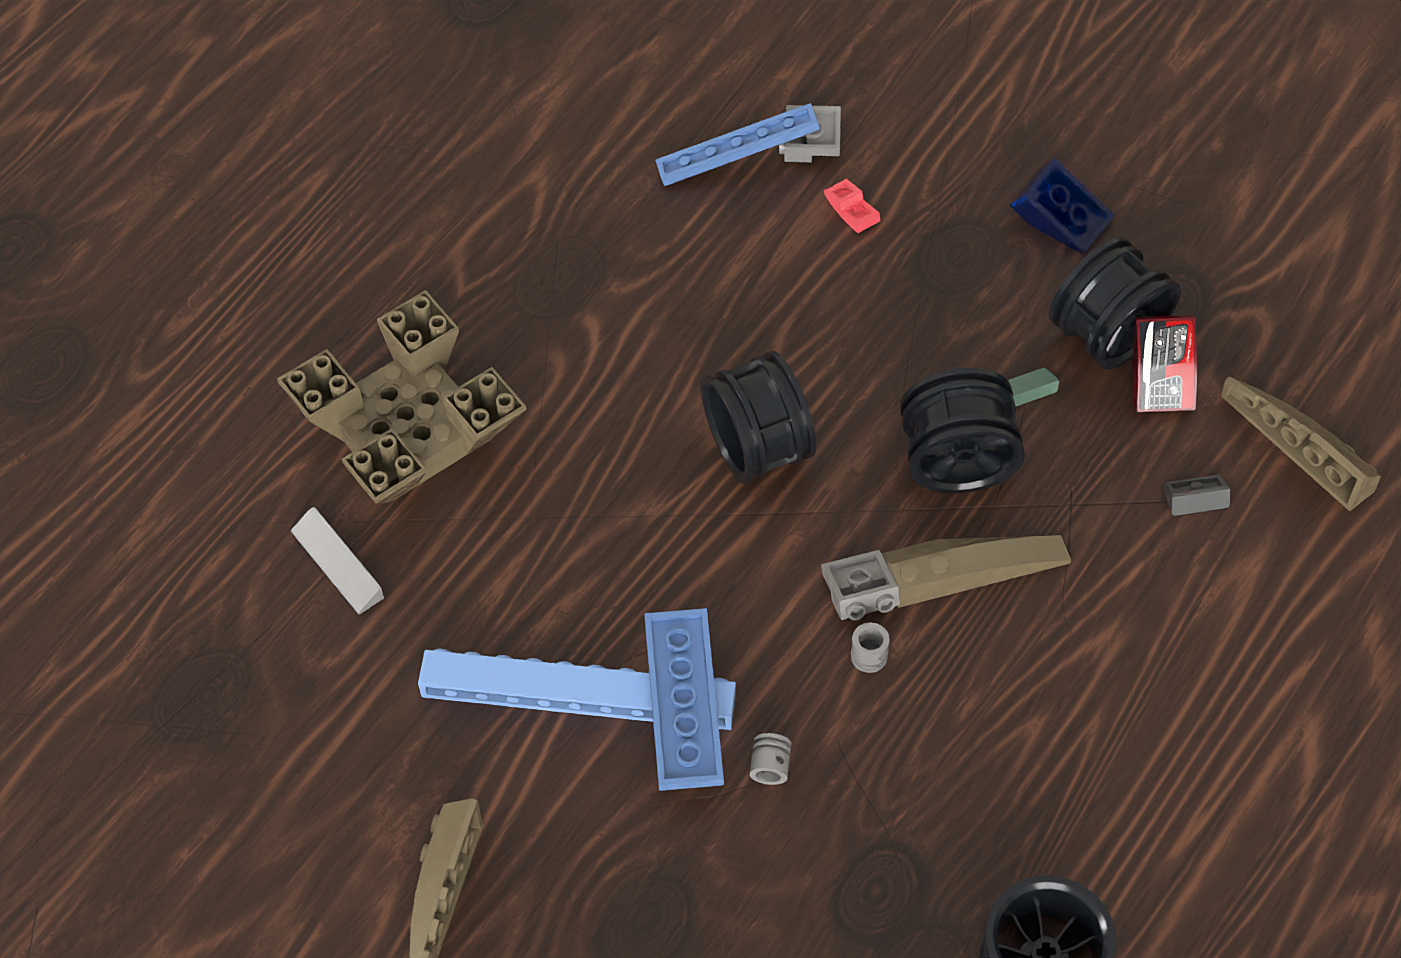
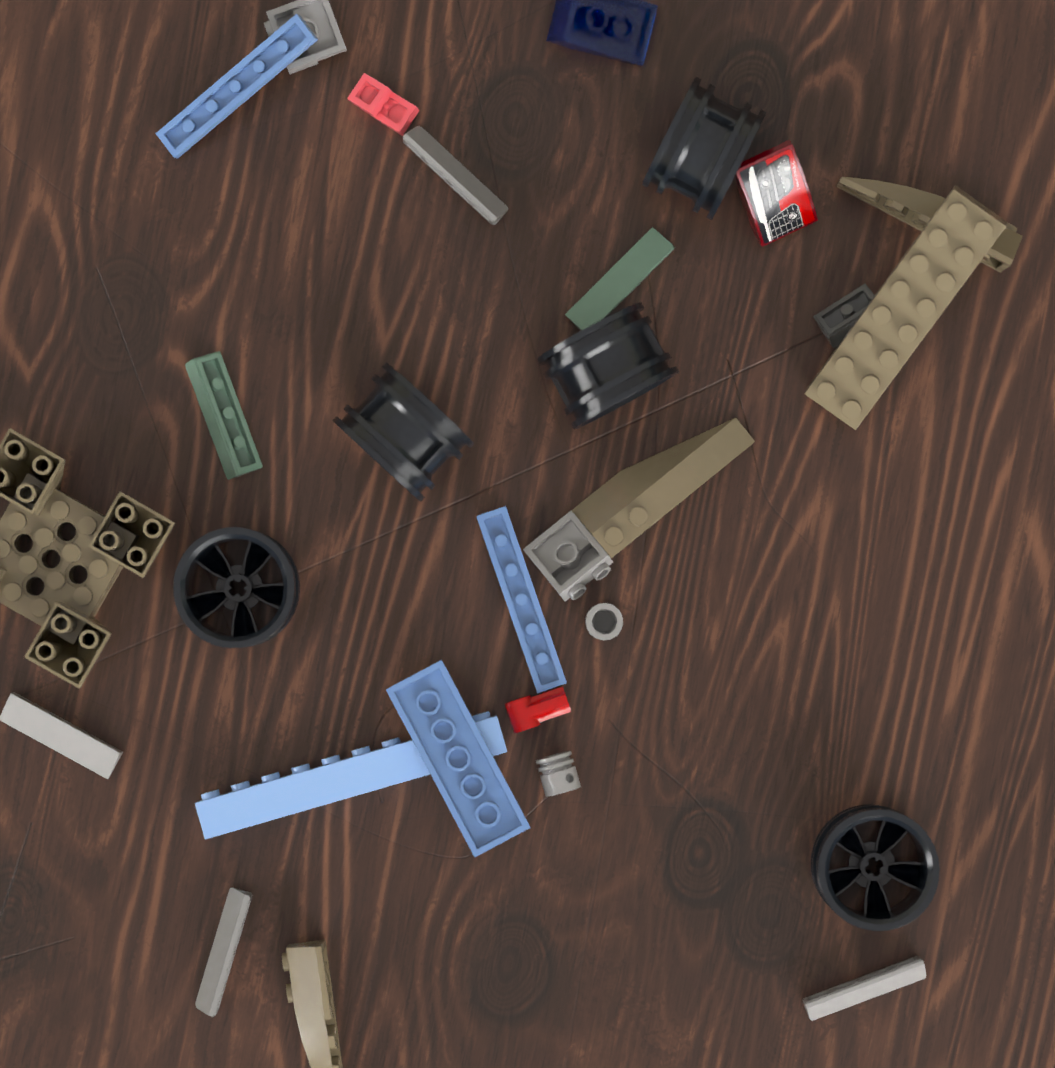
camera: 30 degrees left, 30 degrees up
(385, 796) = (223, 951): none -> light grey slope
(560, 524) = (208, 555): none -> black wheel
(608, 375) = (223, 415): none -> sand green slope
(766, 698) = (530, 711): none -> red piece
(801, 607) = (521, 599): none -> medium blue plate
(888, 273) = (455, 174): none -> light grey slope
(1252, 482) = (906, 307): none -> dark tan brick

